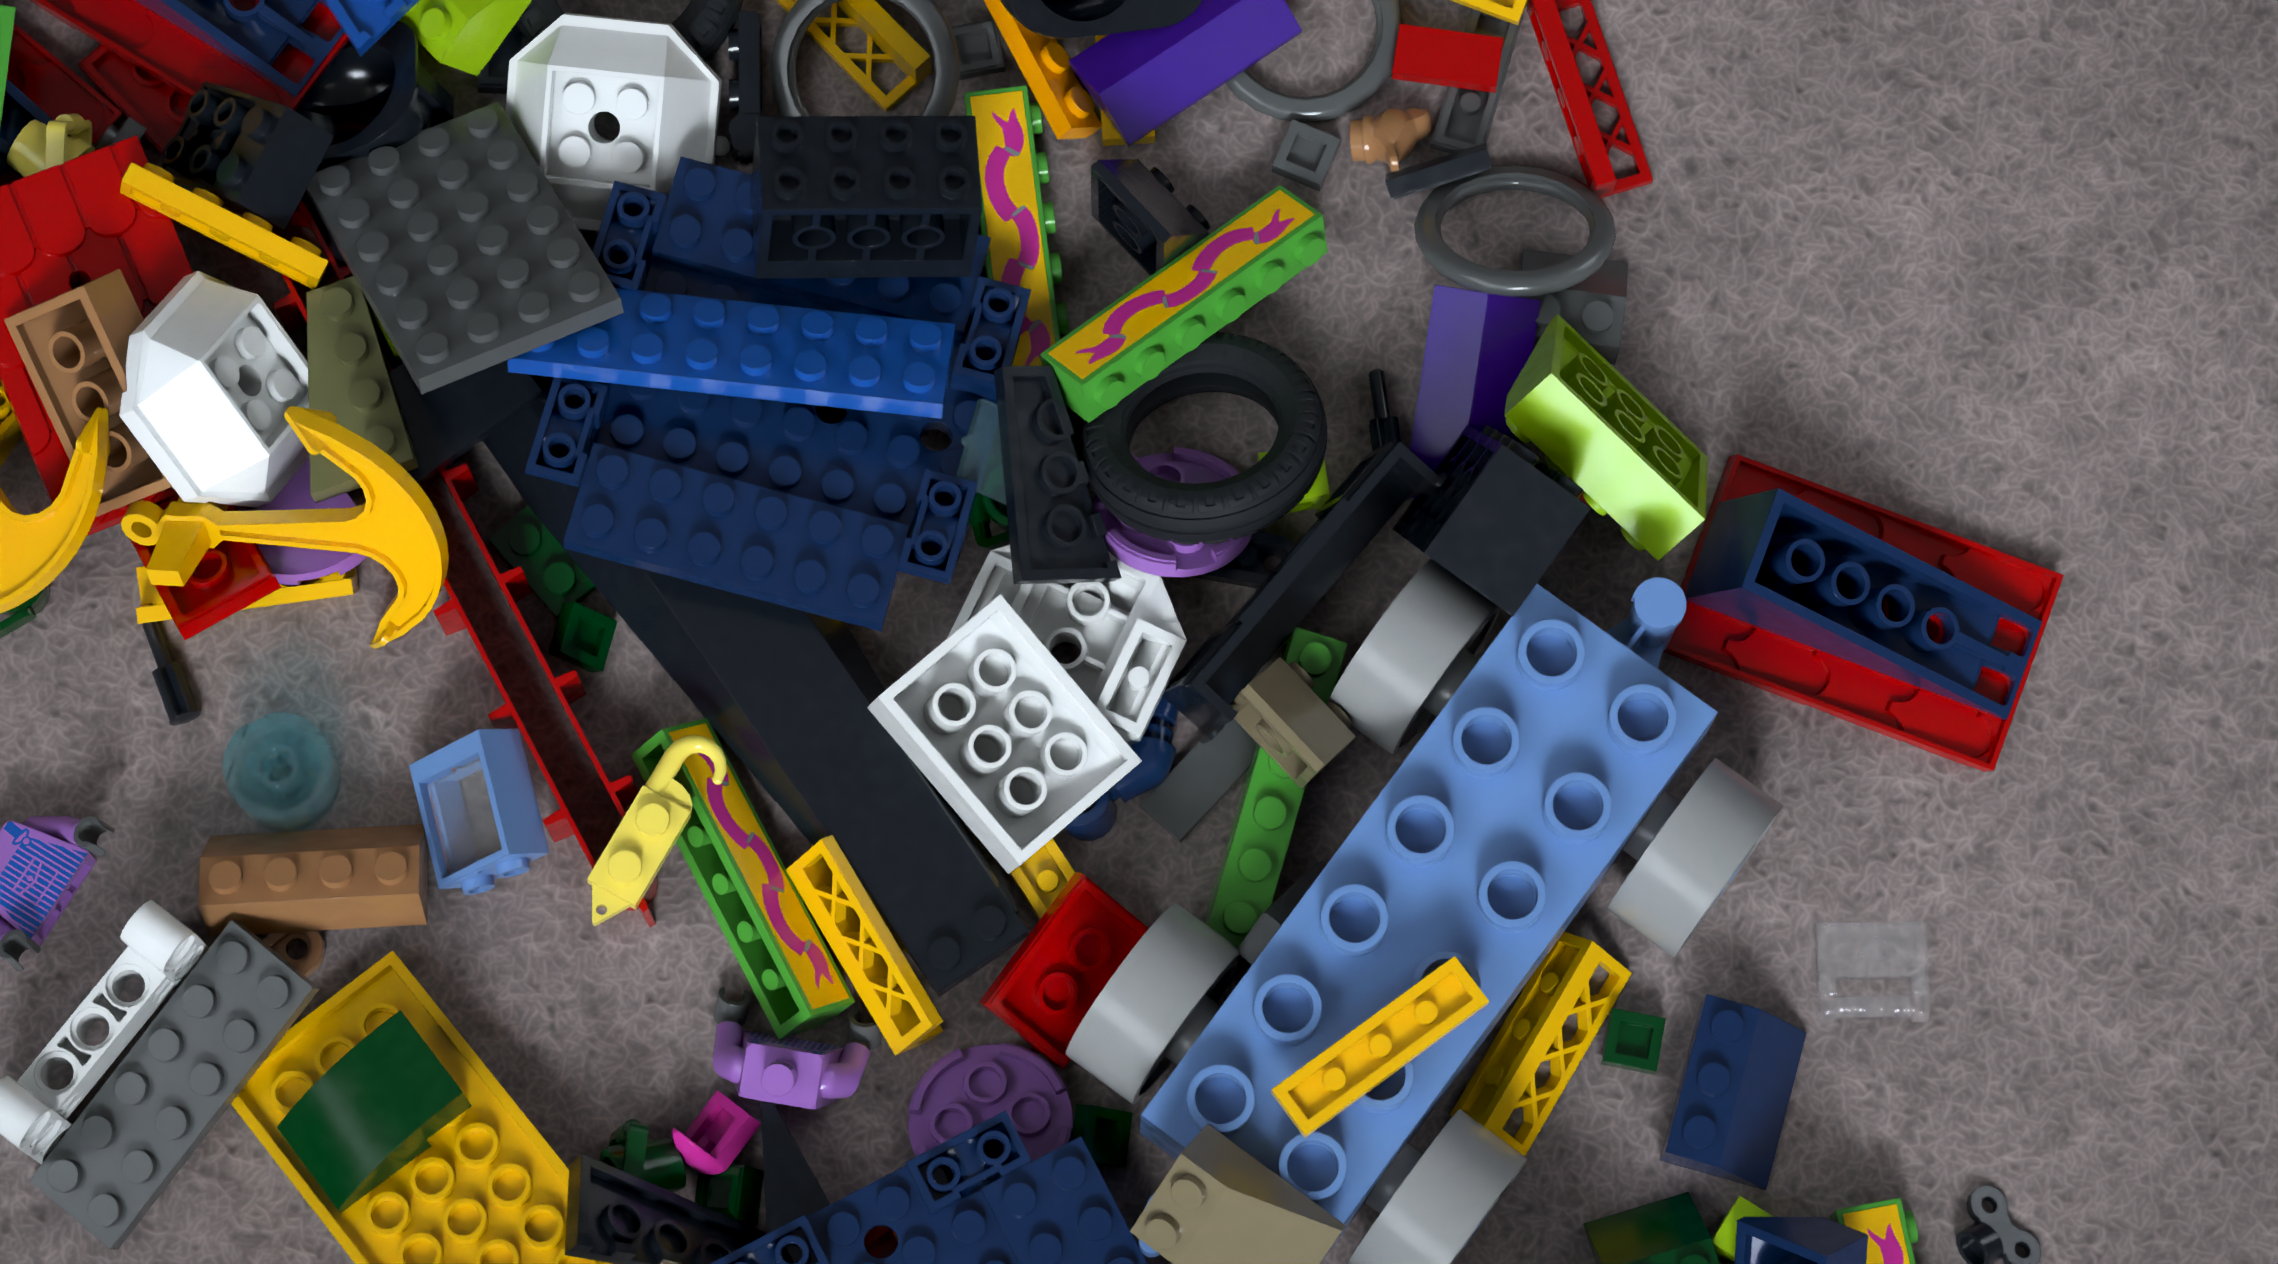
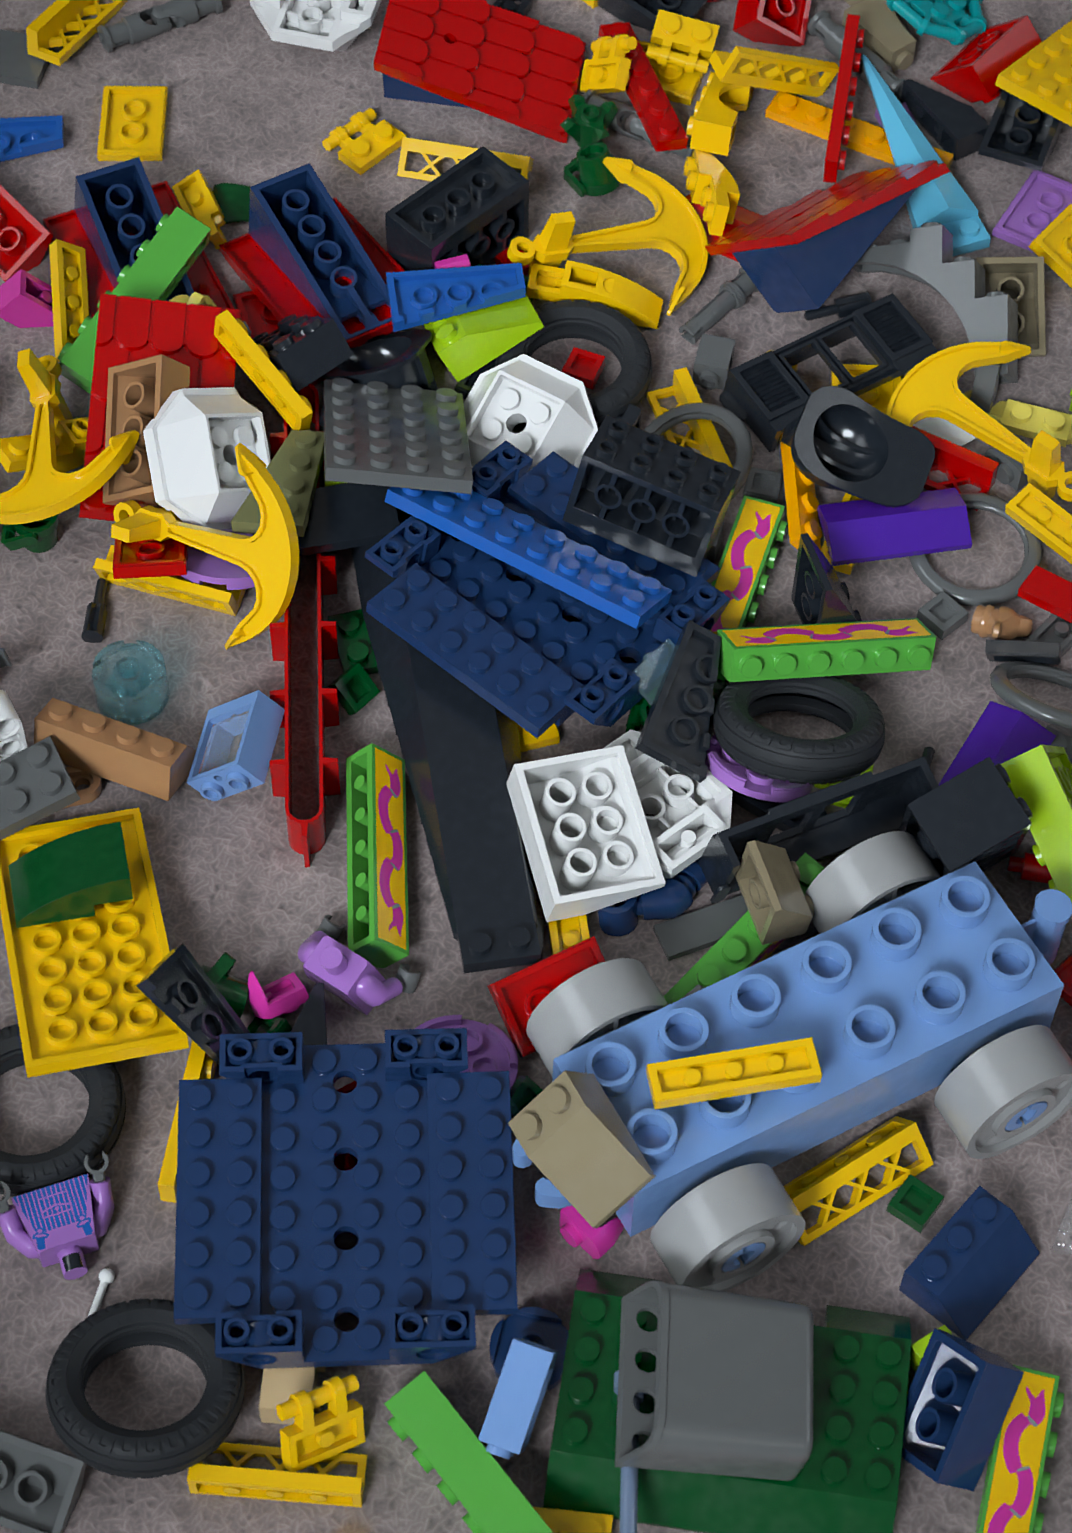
camera: 25 degrees right, 20 degrees down
(648, 830) = (329, 791): light yellow plate -> none
(865, 946) = (432, 926): yellow fence -> none

